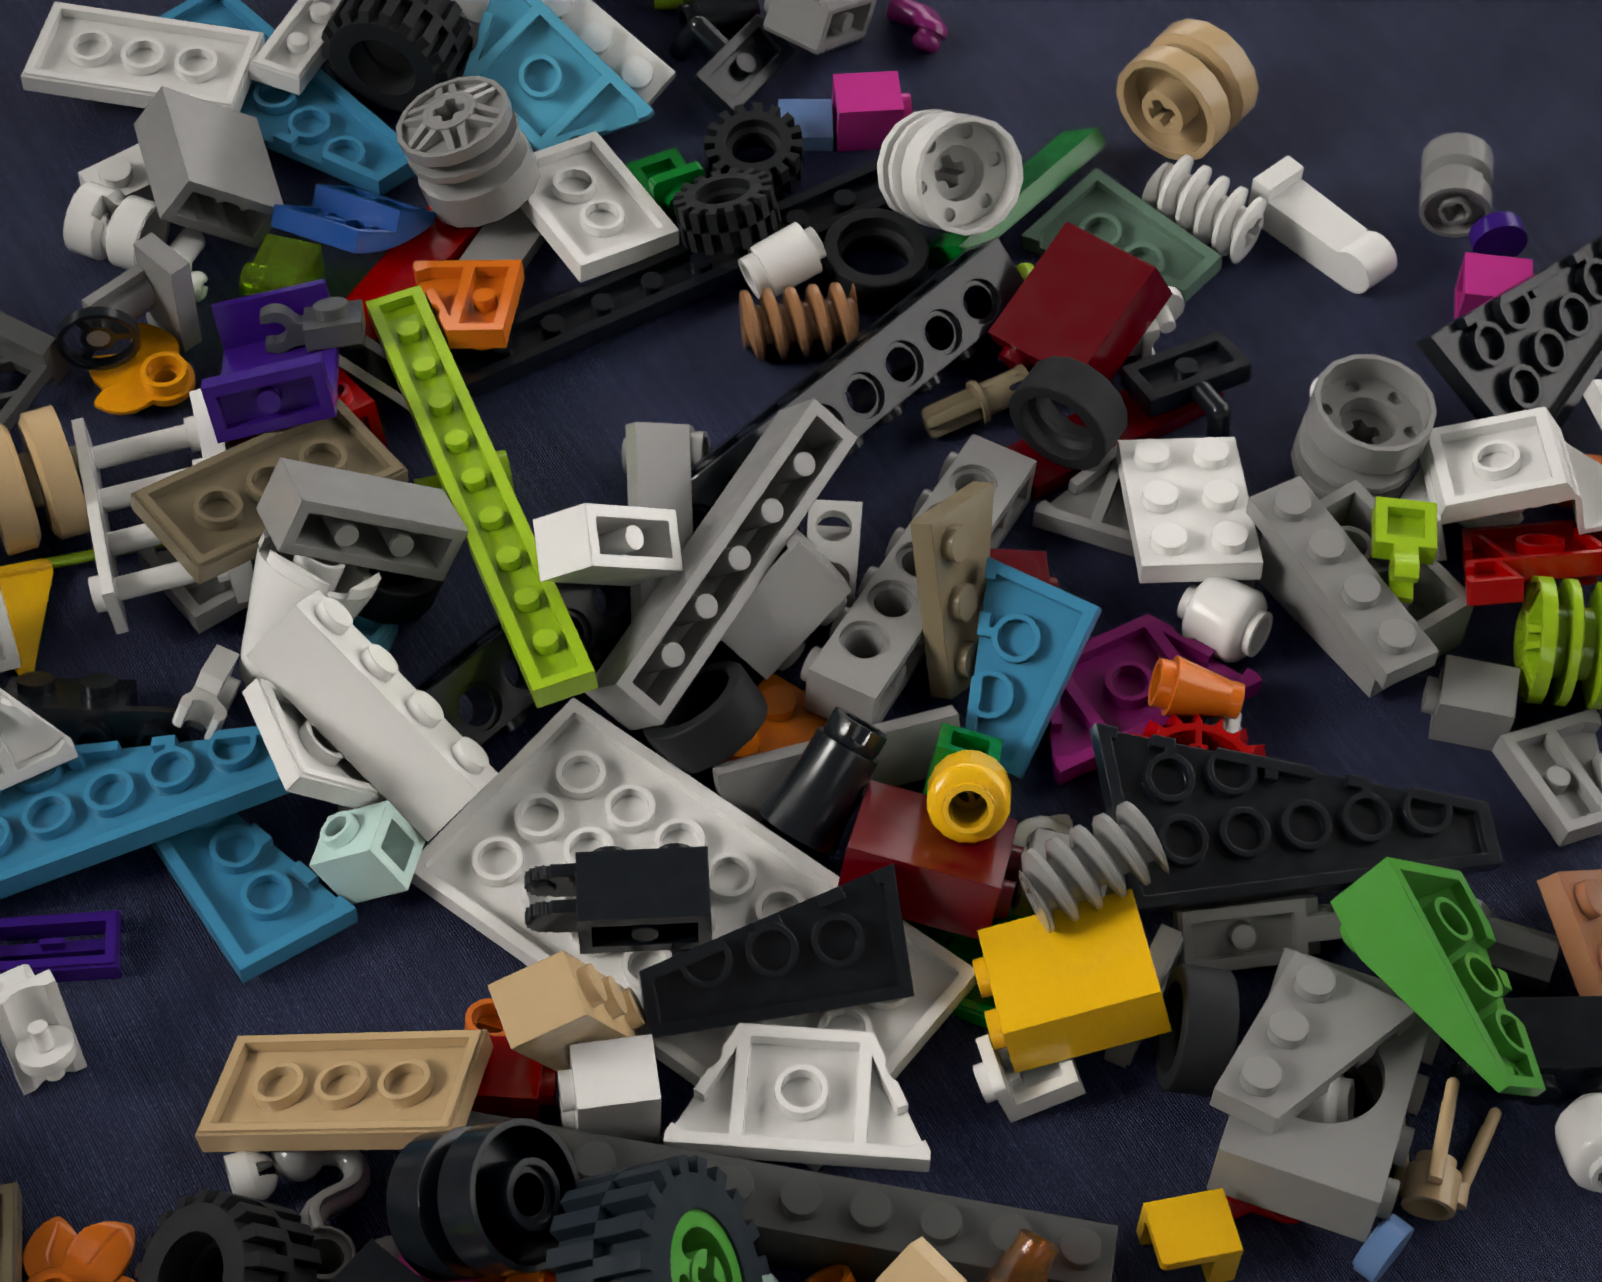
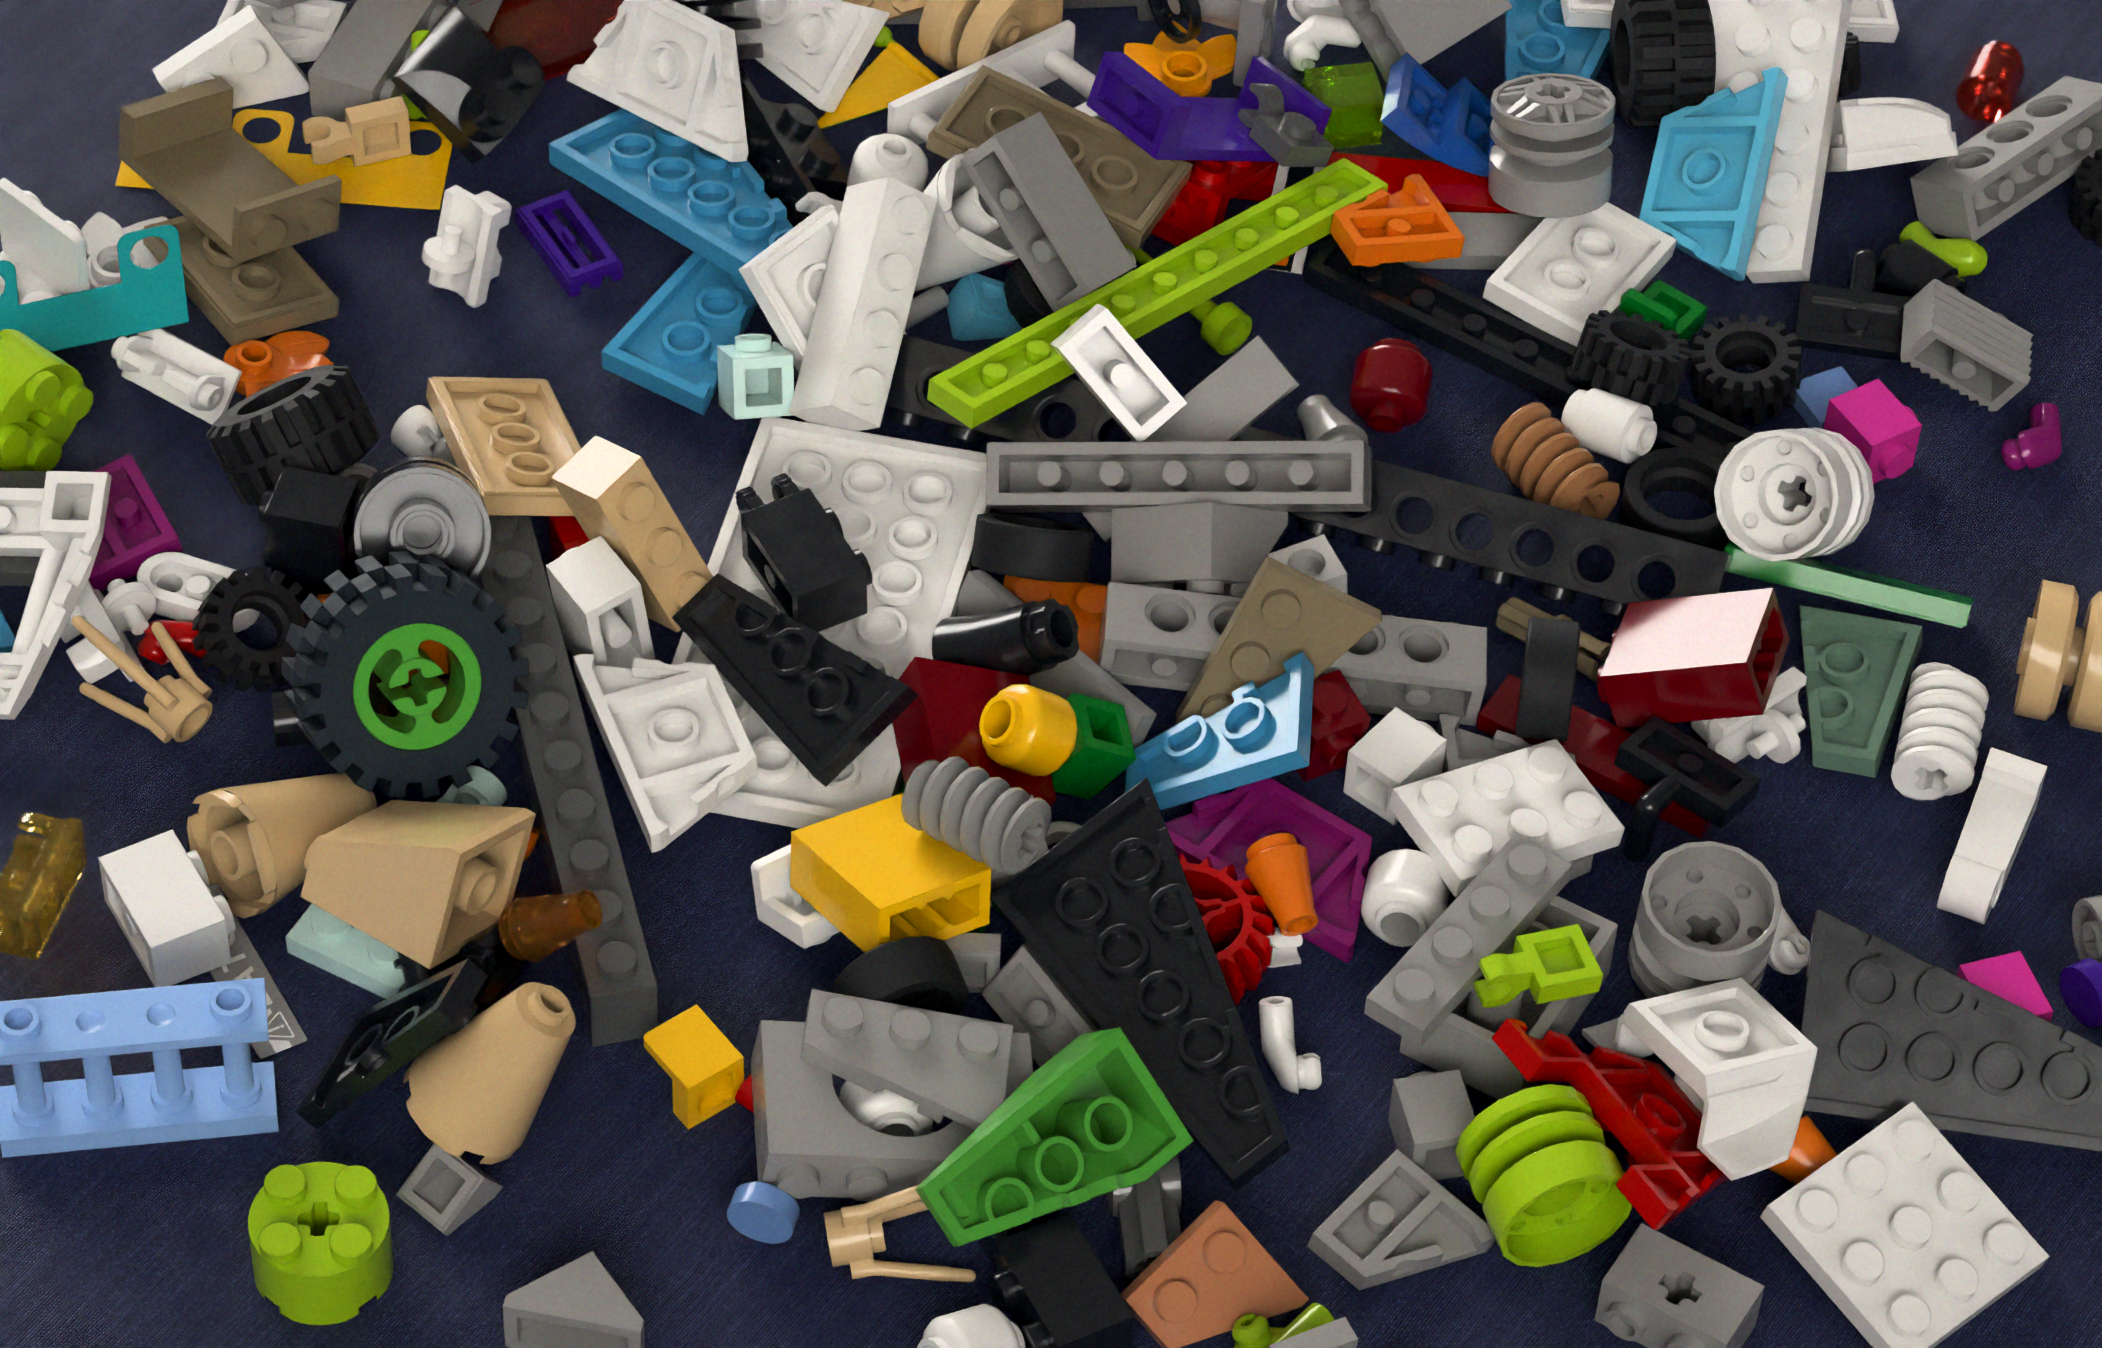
camera: 65 degrees right, 5 degrees down
(163, 644) = (889, 156): none -> white head
(639, 386) = (1391, 384): none -> dark red head
(1078, 558) = (1391, 756): none -> white brick
(1326, 760) = (1279, 1048): none -> white arm

